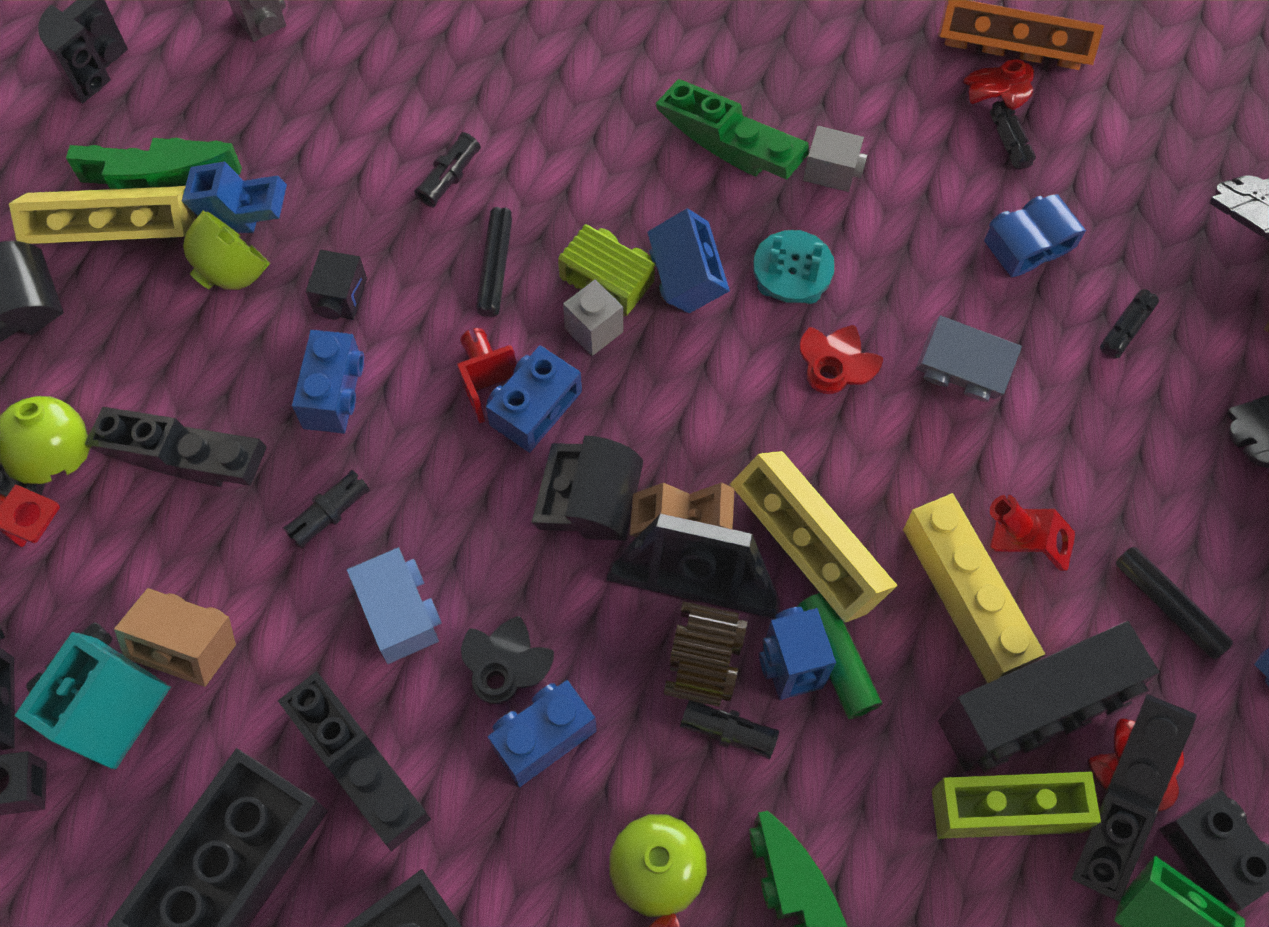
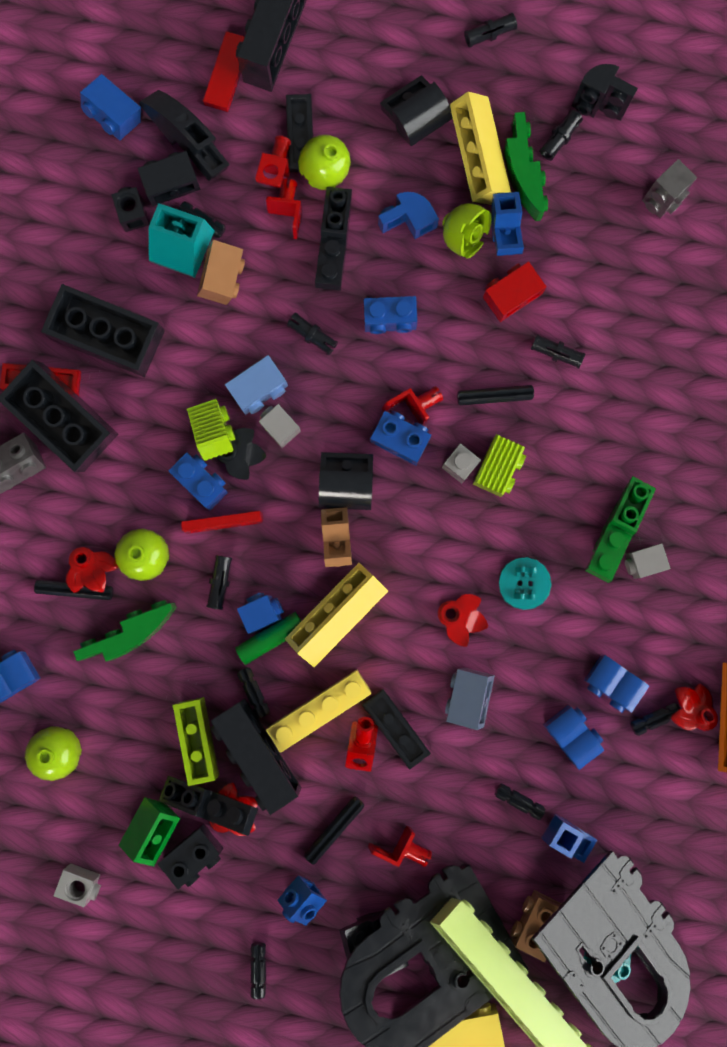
camera: 85 degrees right, 20 degrees up
(95, 514) = (286, 204): none -> red bracket
(121, 117) = (561, 135): none -> black pin
(171, 323) = (413, 210): none -> blue brick
(336, 285) = (457, 302): black brick -> none
(341, 204) = (513, 291): none -> red brick
(354, 761) = (171, 384): black slope -> none
(453, 691) = (210, 429): none -> lime brick
(471, 582) = (279, 425): none -> light grey brick
(623, 705) = (222, 522): none -> red tile
(687, 261) = (510, 515): blue brick -> none
(698, 565) = (306, 551): black wing -> none
(703, 654) = (252, 561): dark brown brick -> none
(783, 103) = (647, 561): none -> light grey brick
(834, 159) = (610, 601): light grey brick -> none
(926, 700) = (253, 692): none -> black axle
(958, 170) = (615, 683): none -> blue brick
(1015, 475) = (396, 729): none -> black tile
(1187, 261) = (568, 838): none -> blue brick
(1205, 495) = (403, 849): none -> red bracket

